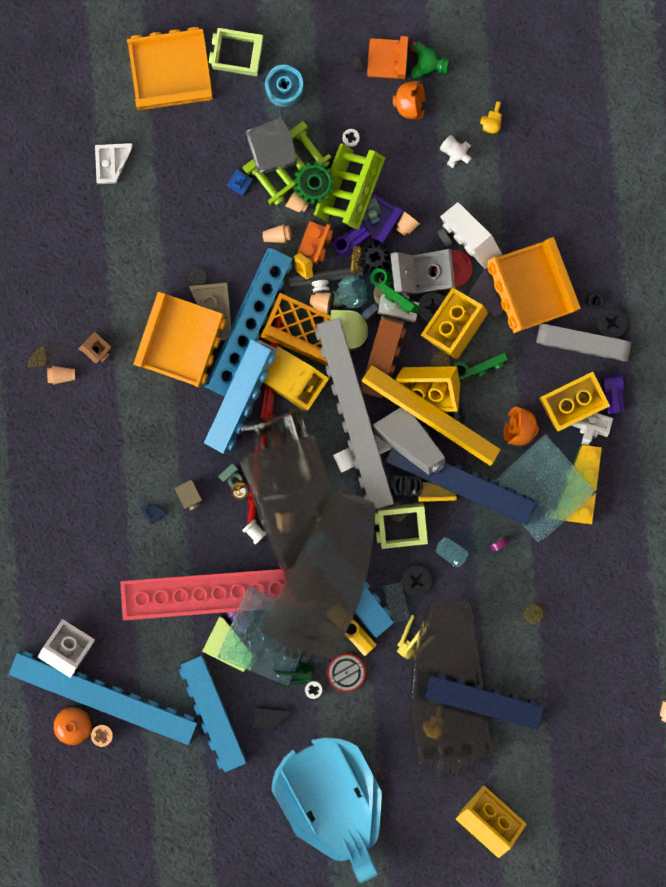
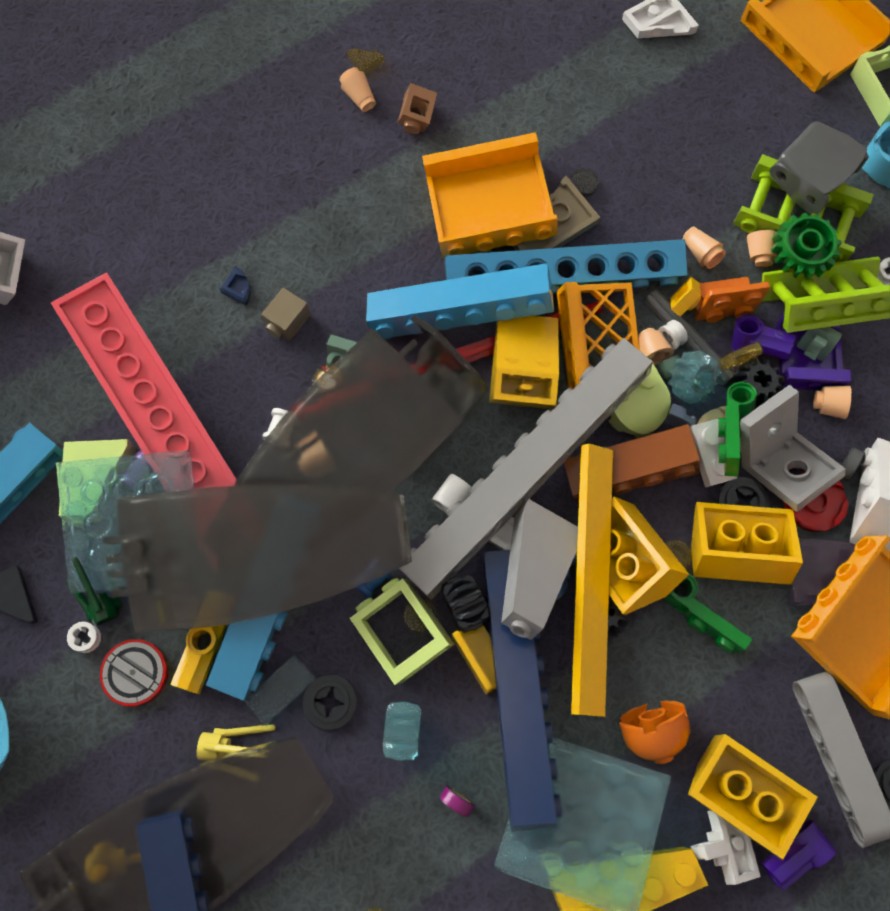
camera: 55 degrees right, 15 degrees down
(239, 182) = (736, 171): blue tile -> none

